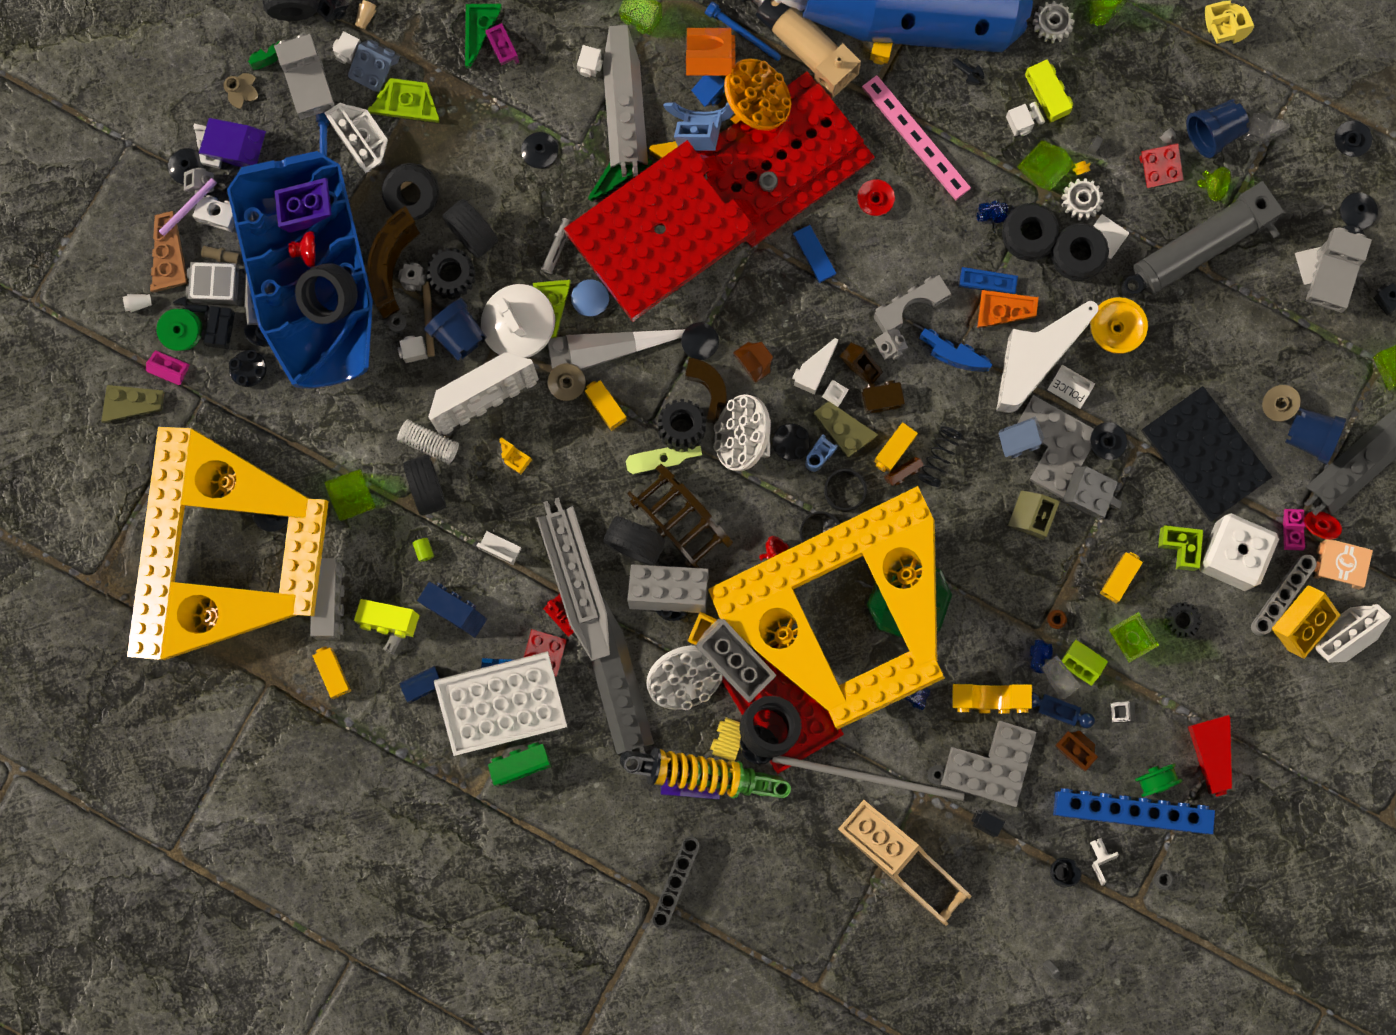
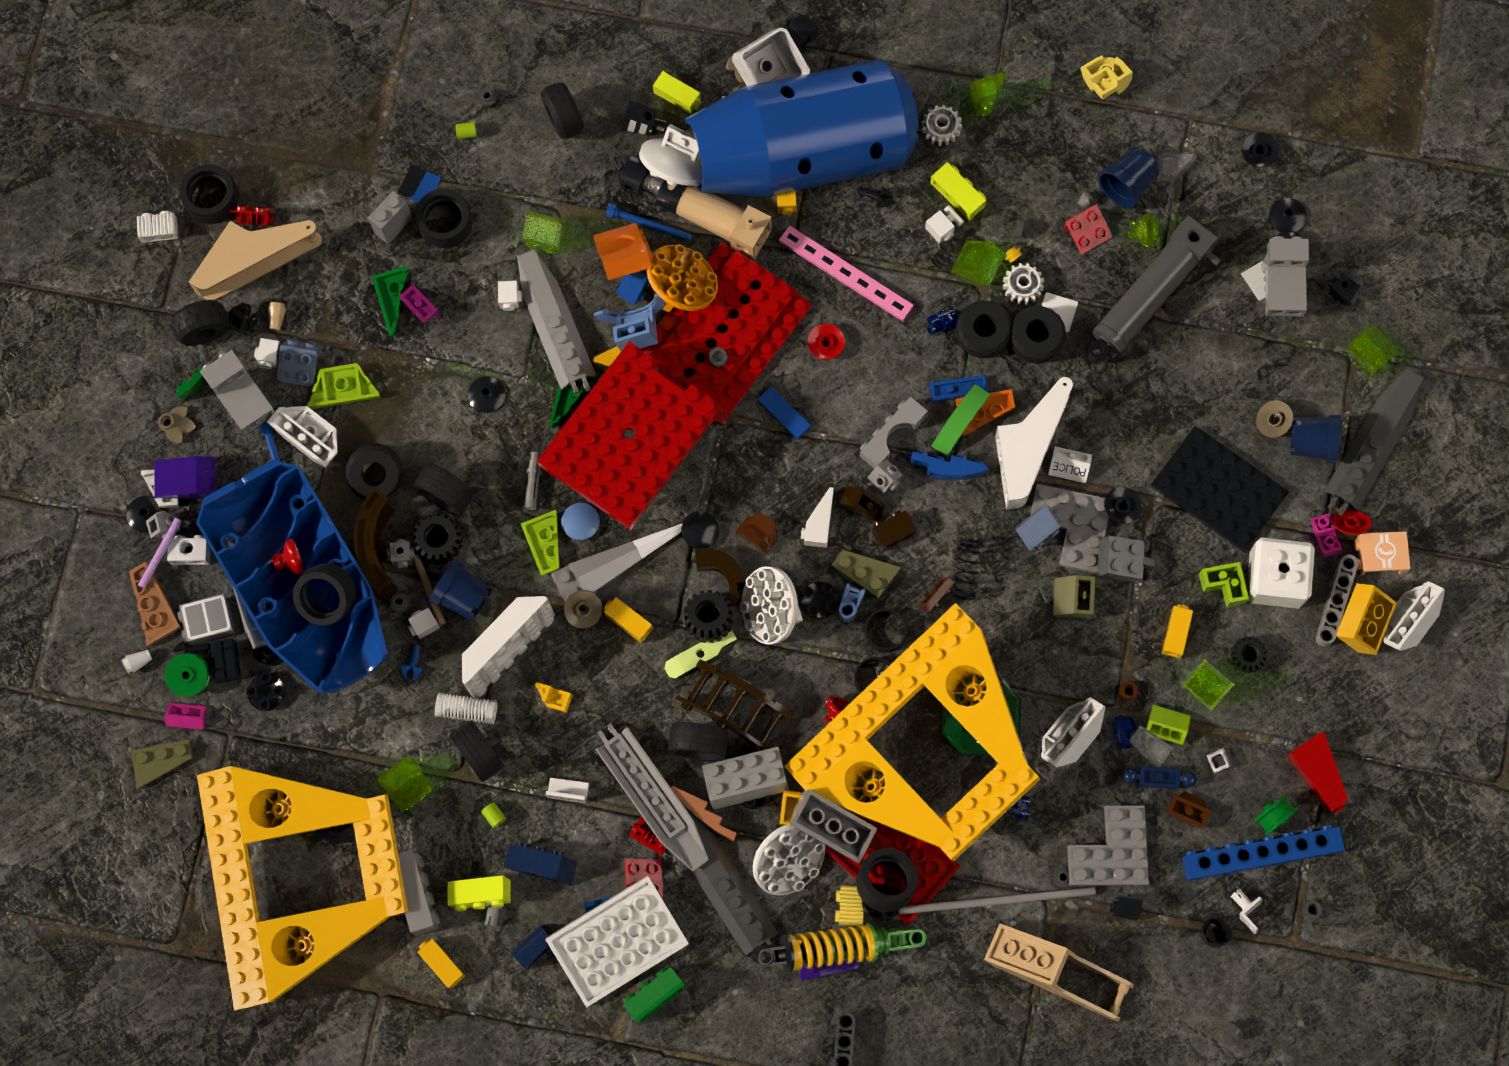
camera: 15 degrees left, 5 degrees down
(221, 255) = (206, 589): dark tan pin -> none
(302, 205) = (275, 516): dark purple slope -> none
(391, 385) = (413, 664): none -> blue bar
(518, 321) = (517, 564): white bracket -> none
(615, 604) = (698, 809): none -> nougat slope
(835, 393) = (846, 540): white plate -> none
(895, 448) = (921, 574): yellow brick -> none
(980, 311) = (960, 420): none -> bright green slope
(990, 642) = (1072, 732): none -> white wedge
(992, 698) = (1092, 785): yellow brick -> none
(1125, 315) = (1099, 381): yellow dish -> none

